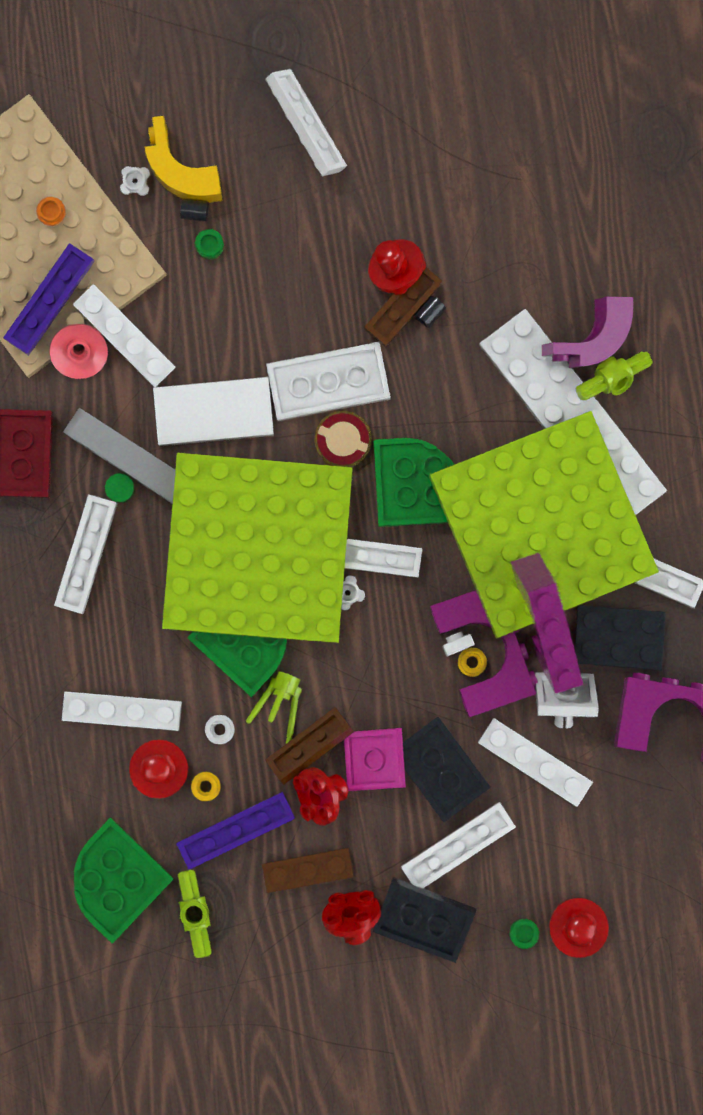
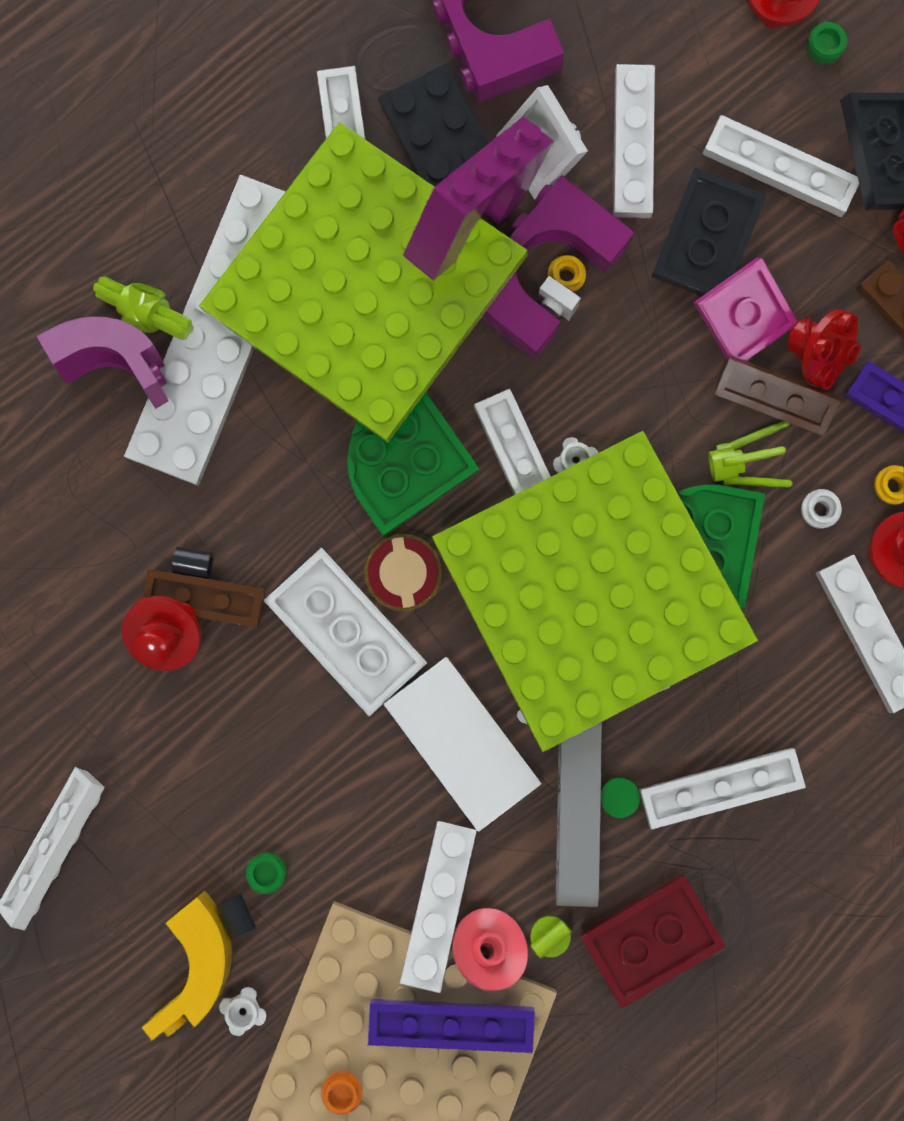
camera: 120 degrees left, 0 degrees up
(62, 393) = (550, 936): none -> lime plate

